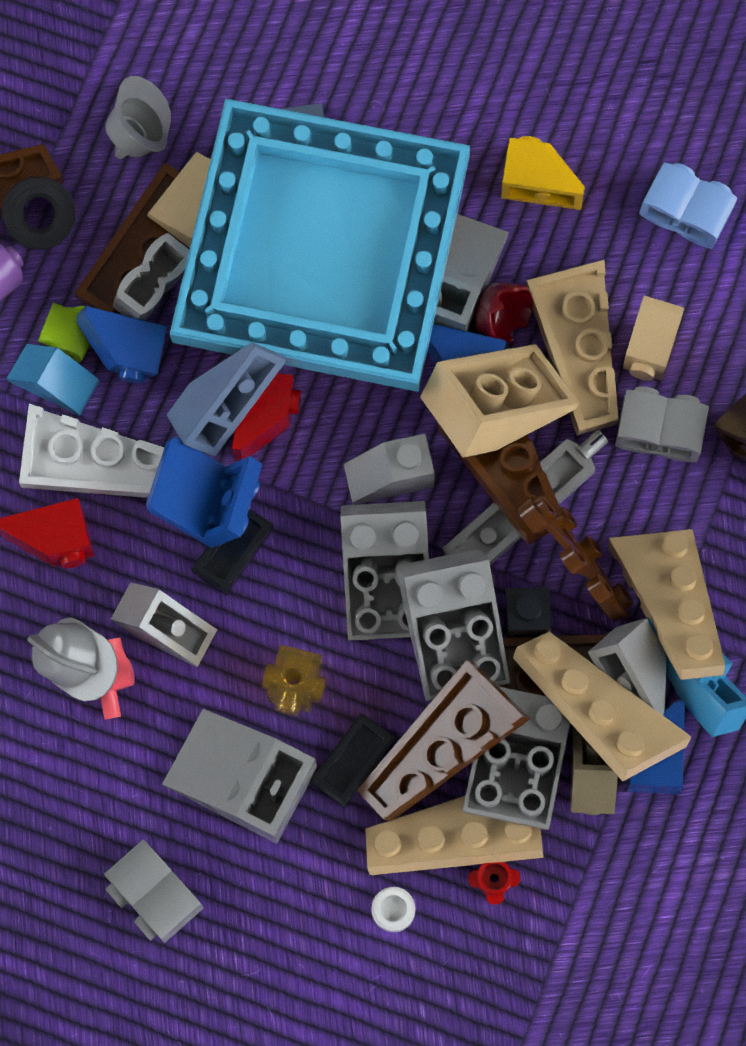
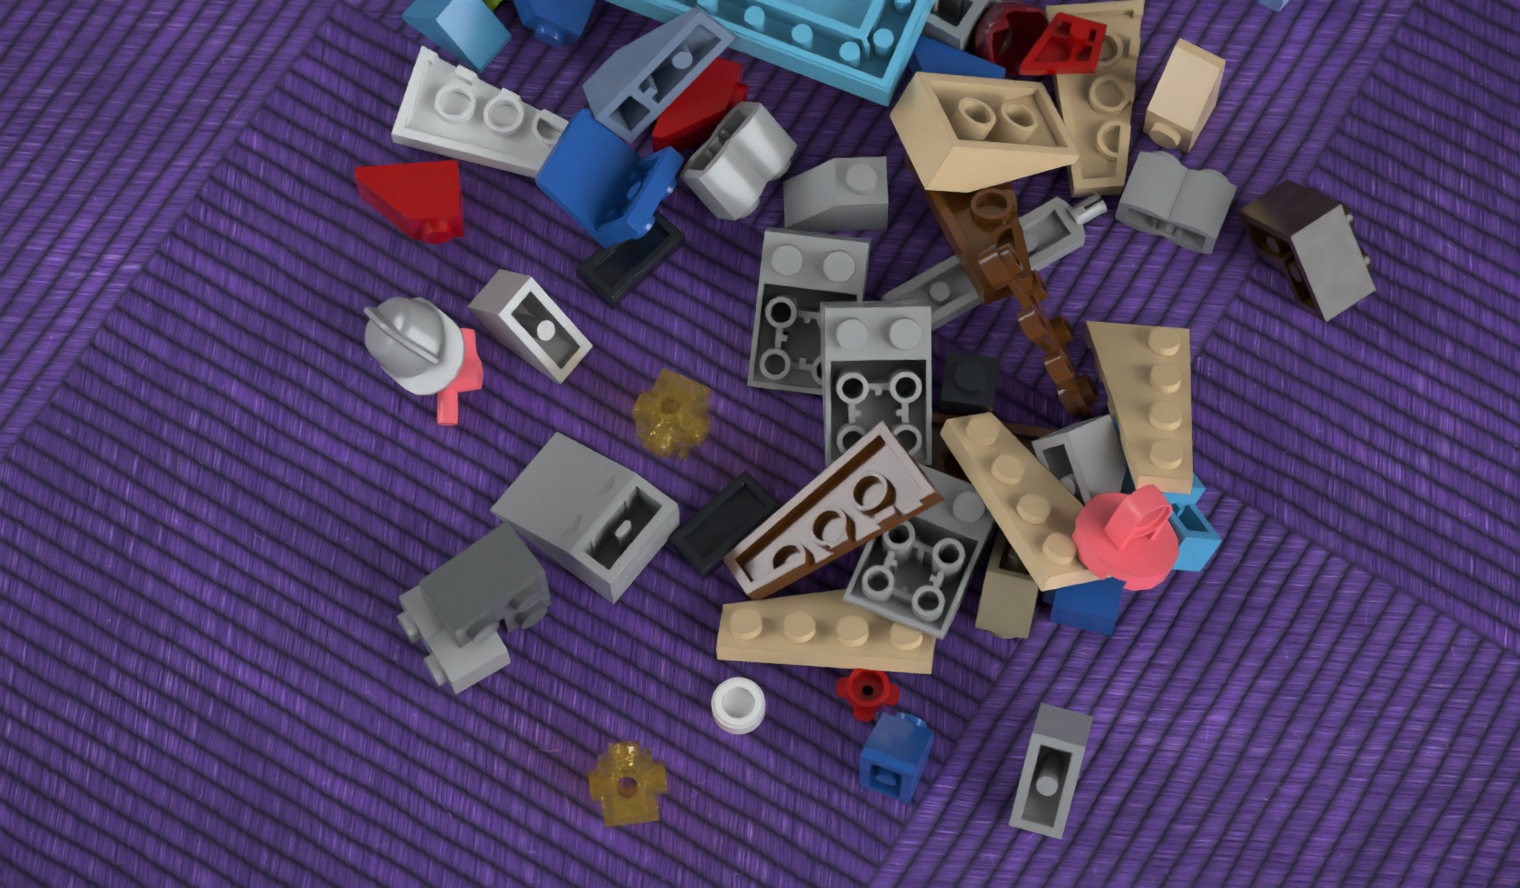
camera: 10 degrees right, 5 degrees down
(174, 855) = (488, 585): none -> dark grey brick
(305, 456) = (739, 161): none -> light grey brick
(319, 996) = (628, 803): none -> clear yellow brick
(529, 929) = (895, 756): none -> blue slope
(551, 313) = (1066, 47): none -> red piece
(654, 917) = (1051, 770): none -> light grey slope
(681, 723) = (1127, 537): none -> coral tile

